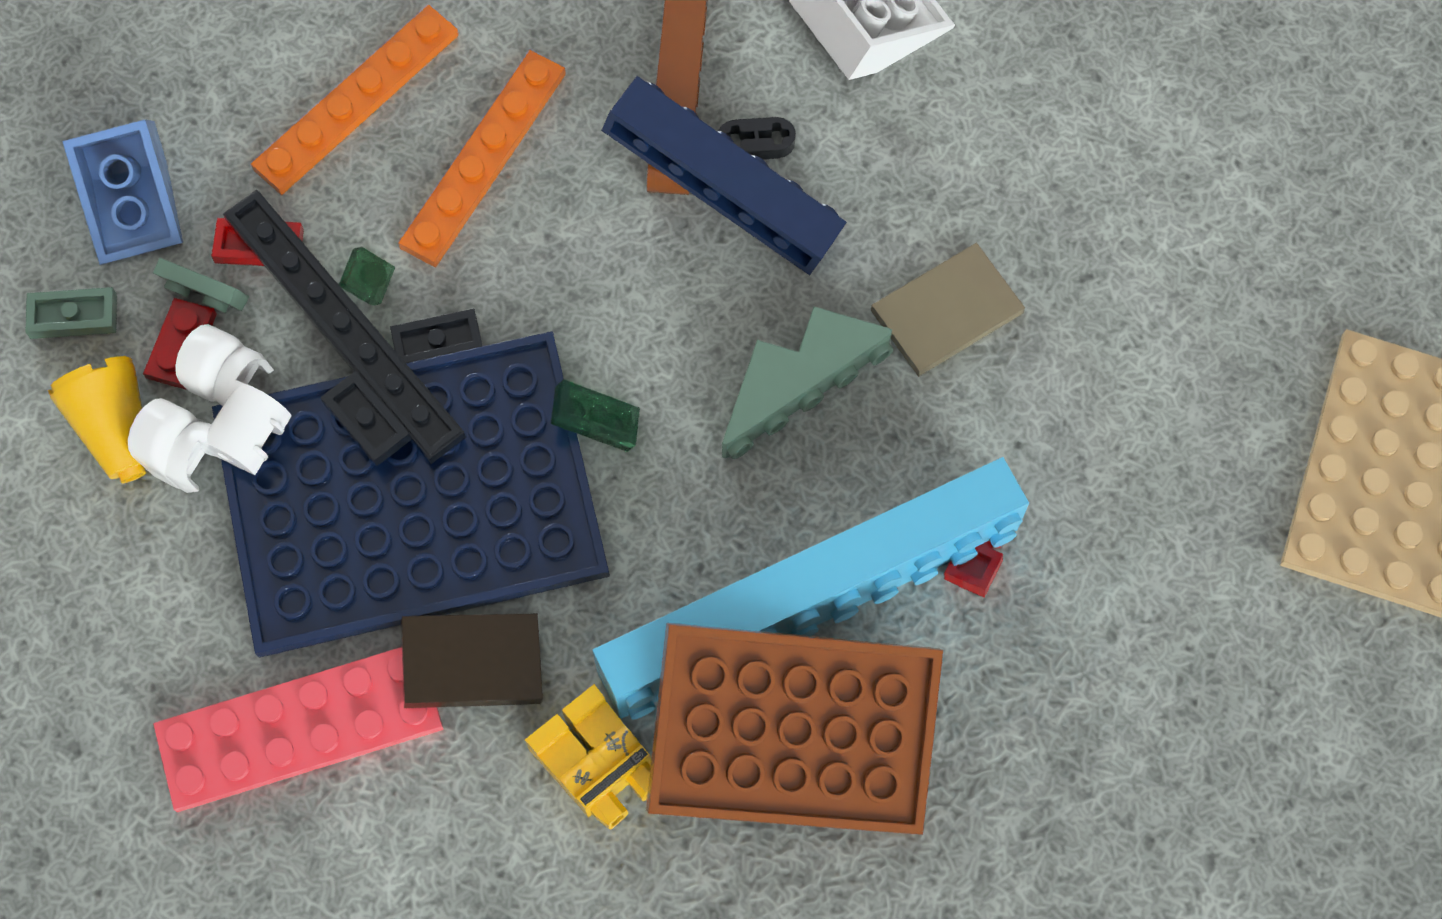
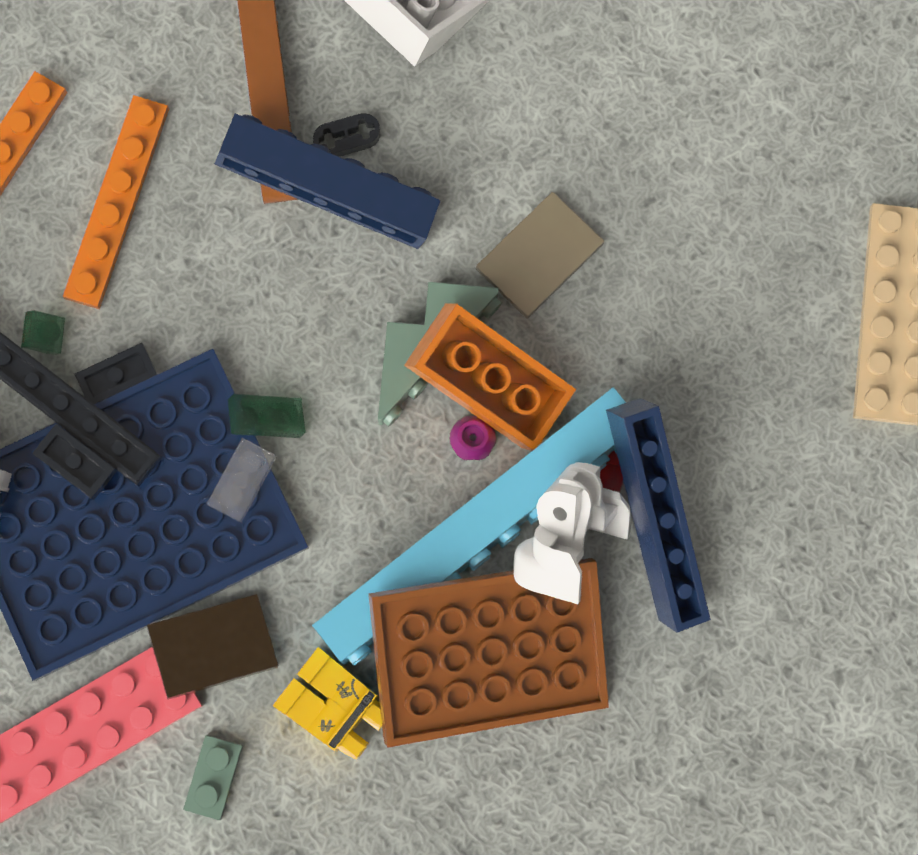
camera: 15 degrees left, 10 degrees up
(435, 813) = (213, 777): none -> sand green plate
(550, 479) = (241, 480): none -> clear plate
(824, 505) = (469, 449): none -> magenta plate
(862, 421) = (490, 376): none -> orange brick
(921, 582) = (565, 513): none -> white piece
(1027, 613) = (658, 514): none -> dark blue brick

